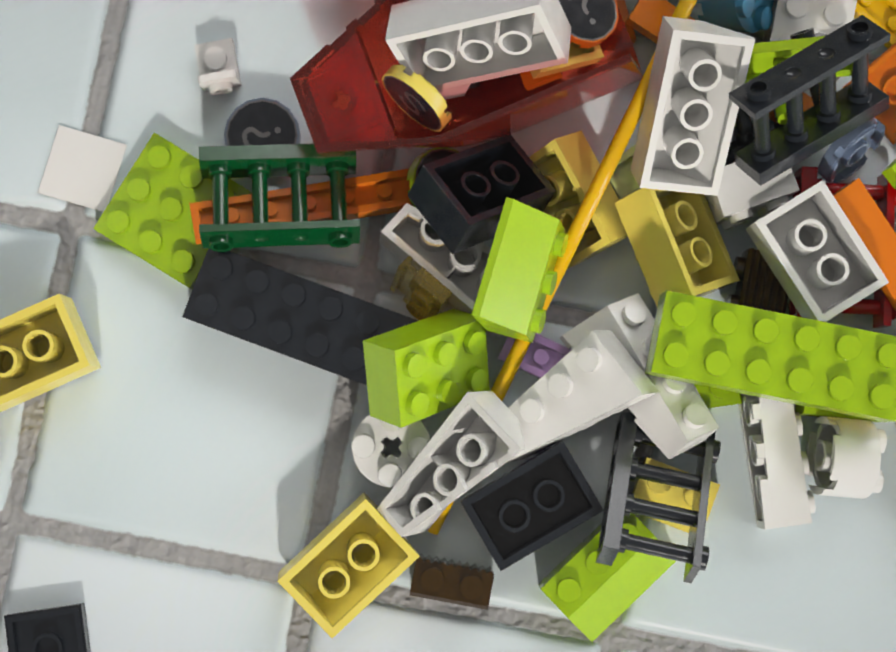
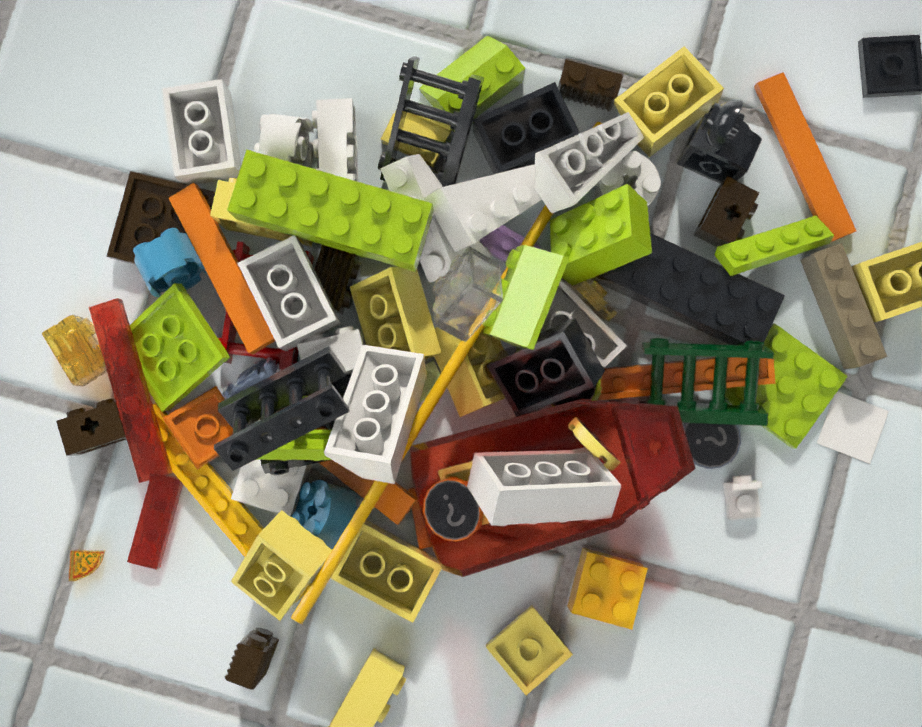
camera: 175 degrees right, 0 degrees up
(103, 313) = (843, 307): none -> dark tan brick
(159, 511) = (804, 155): none -> orange tile
(197, 383) = (773, 245): none -> lime plate
(262, 444) = (730, 197): none -> dark brown brick
(275, 504) = (721, 144): none -> black brick
(591, 272) = (467, 294): none -> clear brick

